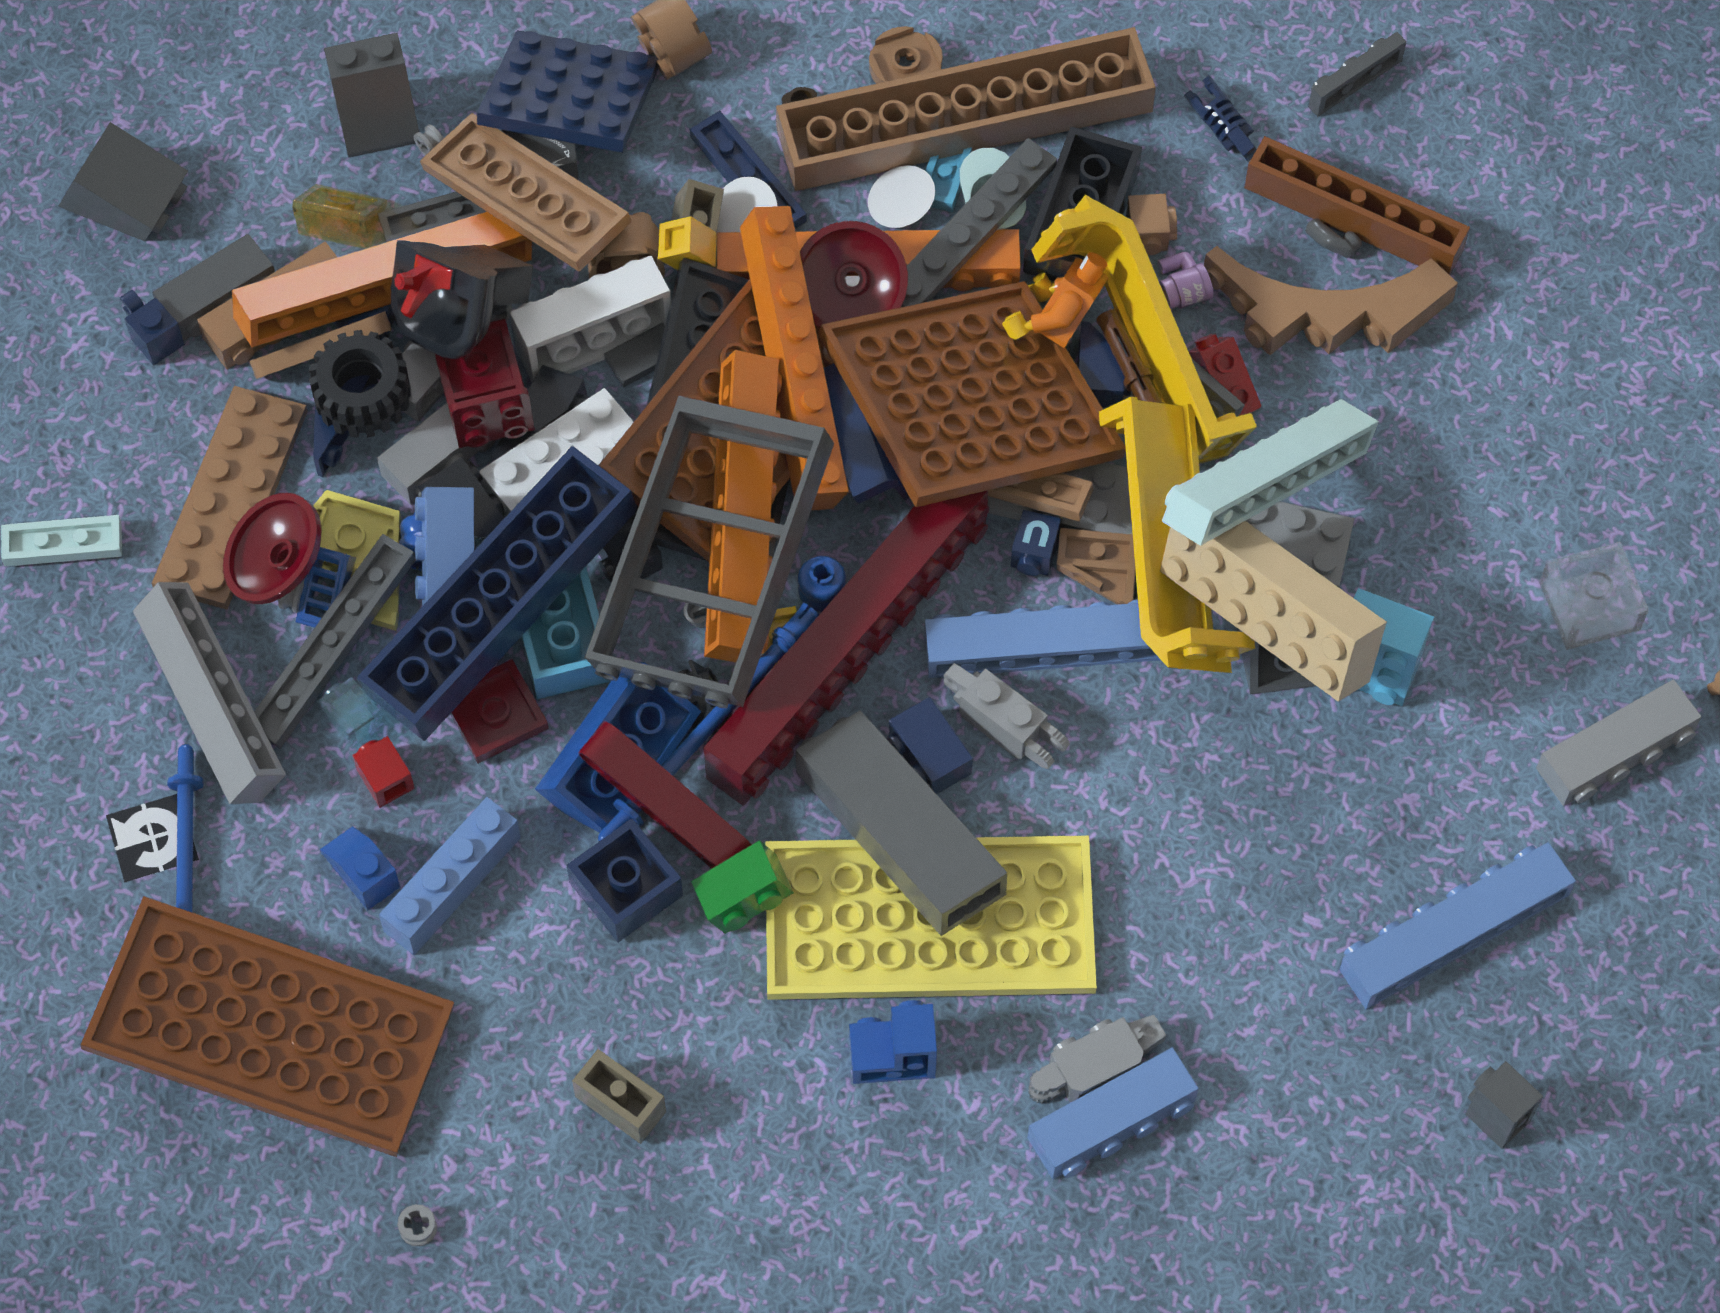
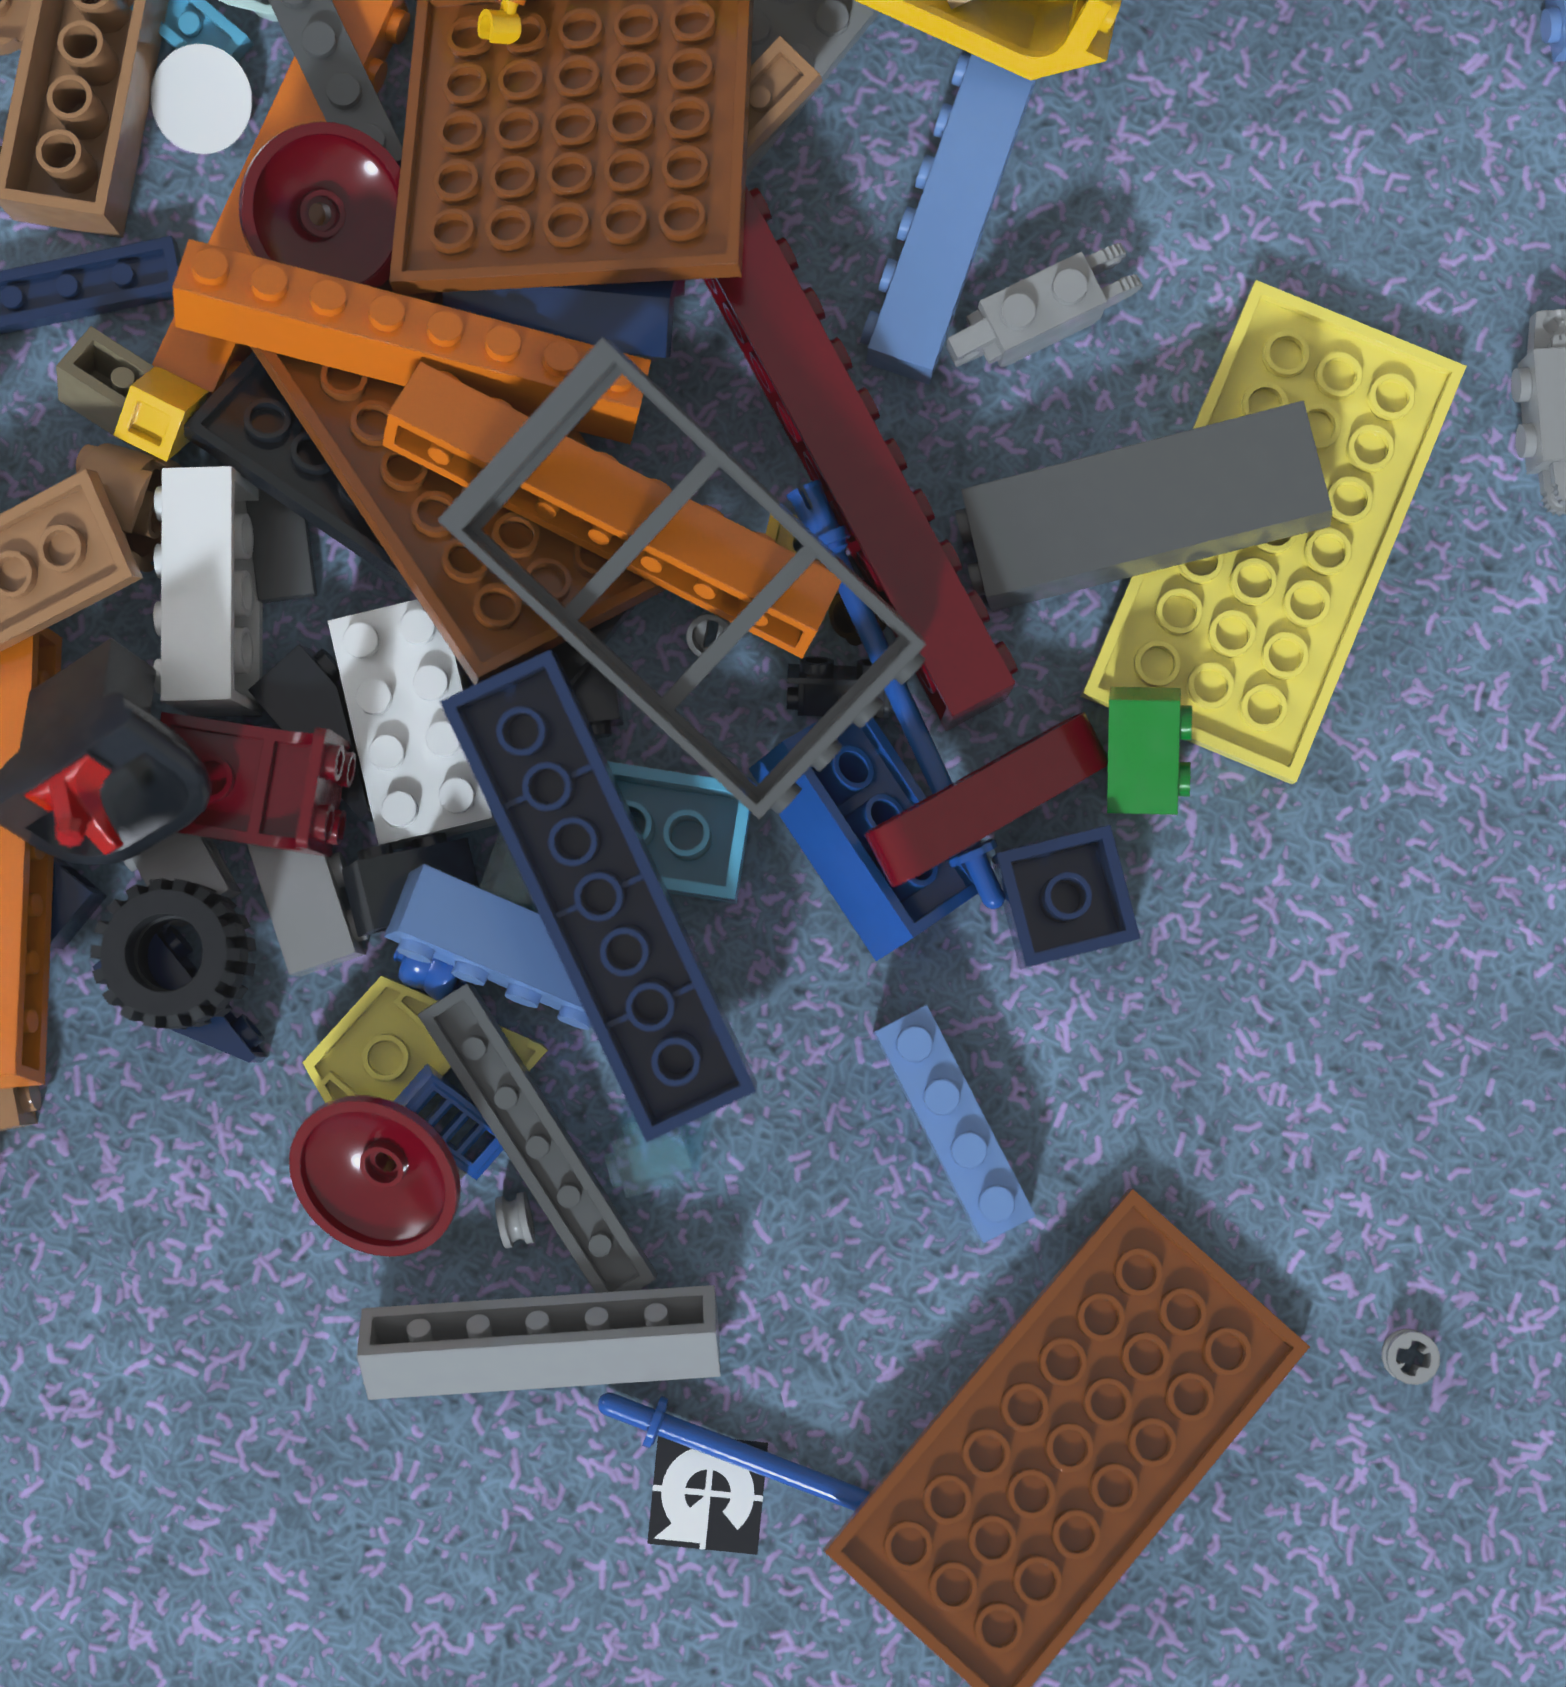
camera: 60 degrees left, 20 degrees up
(61, 540) = (207, 1456): light aqua plate -> none
(235, 474) = (233, 1193): medium nougat plate -> none
(278, 650) = (514, 1220): none -> light grey bush
(307, 349) = (73, 981): medium nougat beam -> none
(362, 867) = (878, 1235): blue slope -> none
(383, 771) = (756, 1151): red brick -> none
(498, 713) = (746, 960): dark red plate -> none
(619, 1096) = (1363, 1030): dark tan brick -> none
(740, 199) = (127, 306): white sticker -> none
(820, 581) = (753, 440): blue piece -> none
(895, 1048) = (1444, 644): blue brick -> none
(930, 745) = (1041, 424): dark blue brick -> none
(1035, 543) = (810, 159): dark blue brick -> none
(1099, 562) = (872, 89): medium nougat wing -> none

